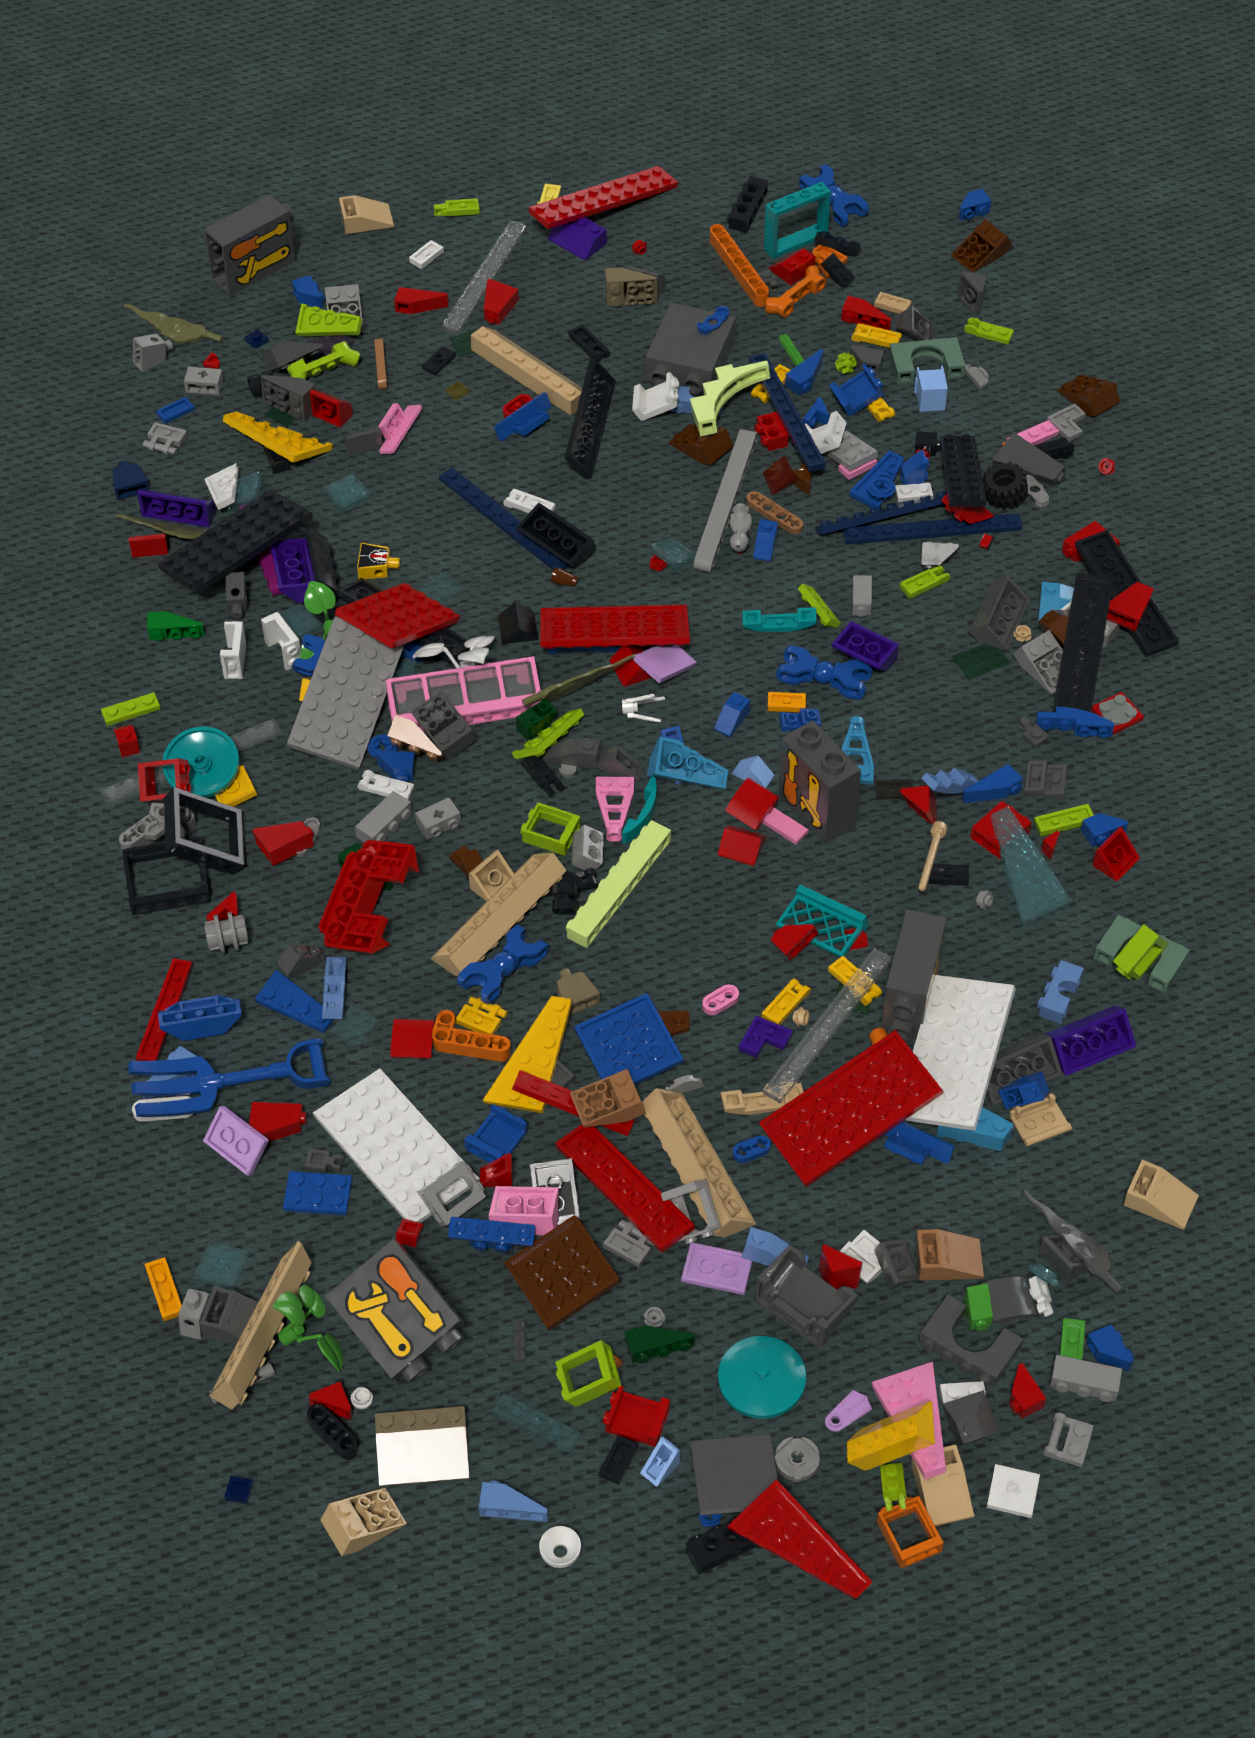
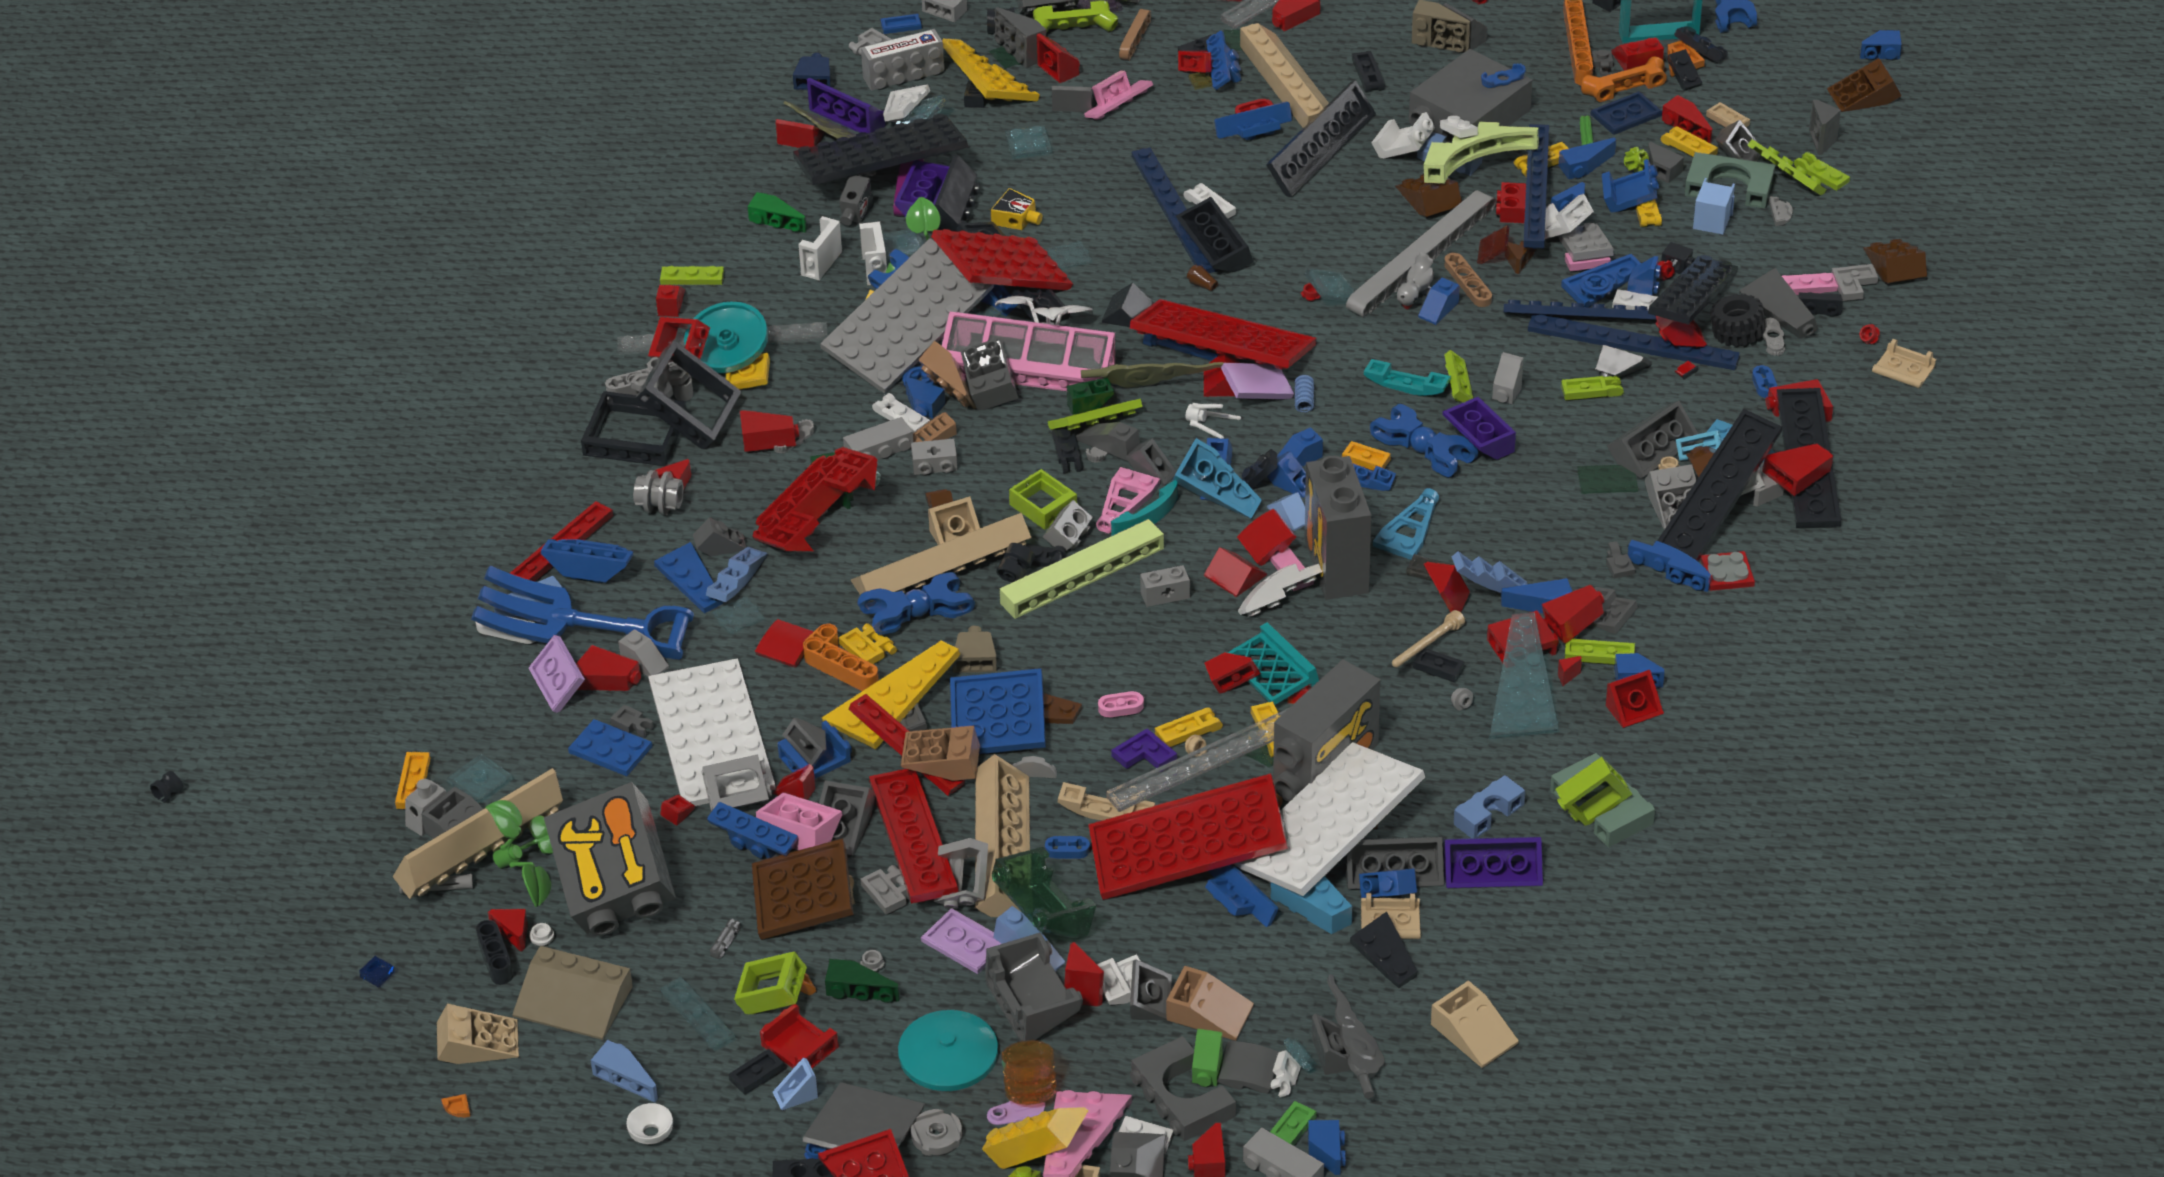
camera: 25 degrees right, 10 degrees down
(202, 446) = (902, 59): none -> light grey brick
(297, 1092) = (642, 649): none -> light grey slope
(381, 1593) = (456, 1105): none -> orange tile
(428, 784) = (943, 423): none -> medium nougat slope
(446, 375) = (1194, 61): none -> red slope
(468, 369) = (1223, 61): none -> blue bracket
(489, 1129) = (806, 739): none -> dark grey slope
(696, 877) = (1165, 586): none -> light grey brick
(703, 378) = (1458, 127): none -> white plate
(705, 659) = (1304, 393): none -> medium blue piece
(714, 742) = (1260, 469): none -> black plate
(736, 739) = (1289, 474): none -> blue slope
(767, 1211) = (1030, 888): none -> clear green windscreen
(784, 848) = (1275, 586): none -> white slope
(811, 322) = (1626, 113): none -> dark blue tile
(847, 1376) = (1029, 1072): none -> clear orange wheel
(961, 333) = (1786, 165): none -> lime wing
(1025, 615) = (1679, 442): none -> medium azure tile
(1029, 792) = (1573, 612): none -> red slope
(1049, 535) = (1760, 382): none -> blue beam
(1054, 1152) = (1385, 950): none -> black wing
(1145, 485) = (1905, 365): none -> tan piece

